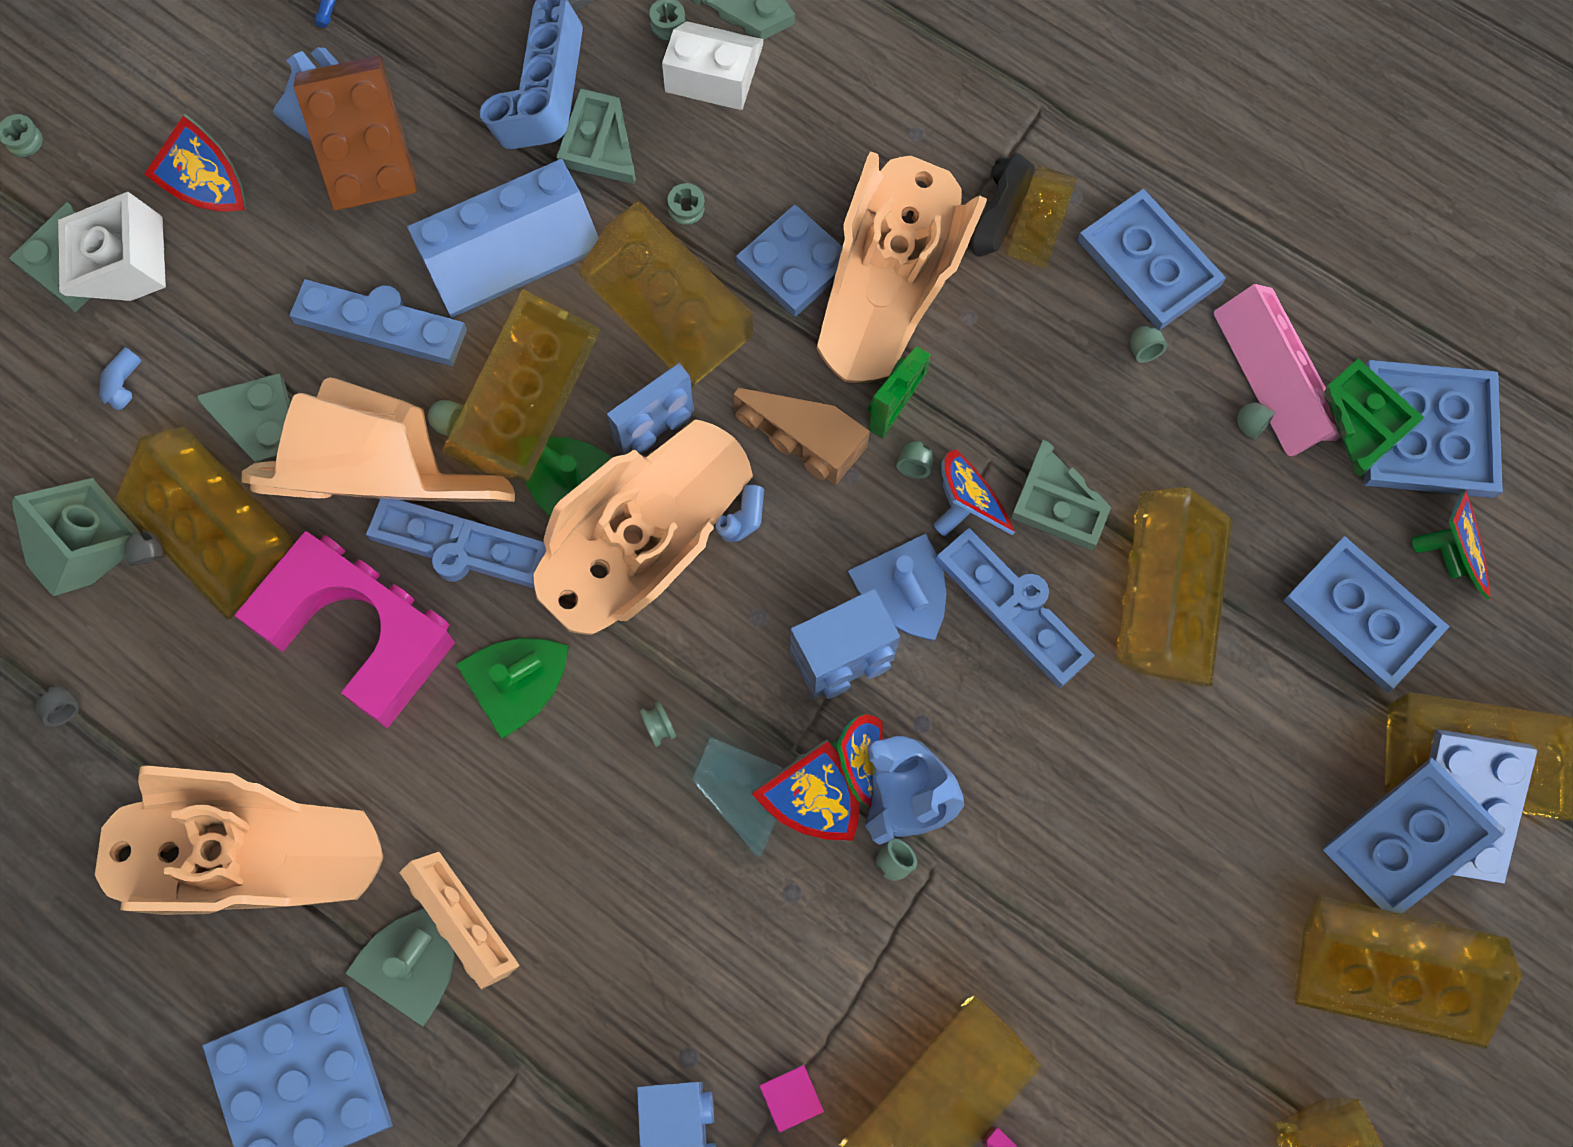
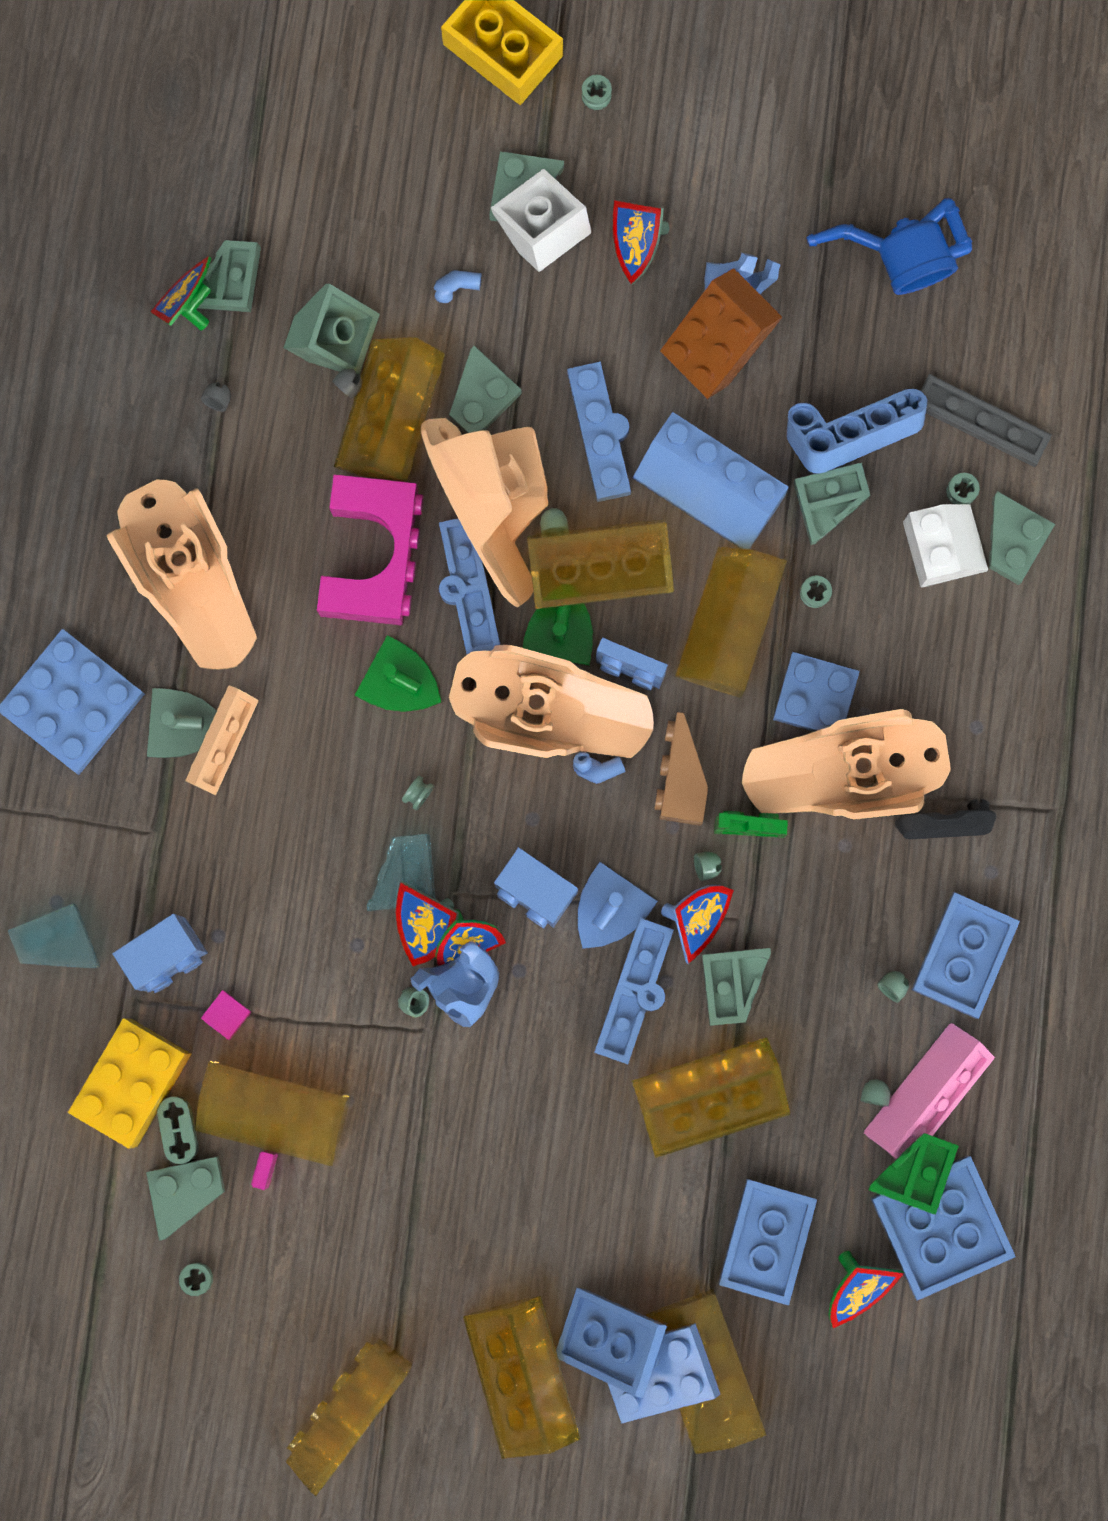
camera: 65 degrees right, 10 degrees up
(1042, 216) = (954, 857): clear yellow slope -> none

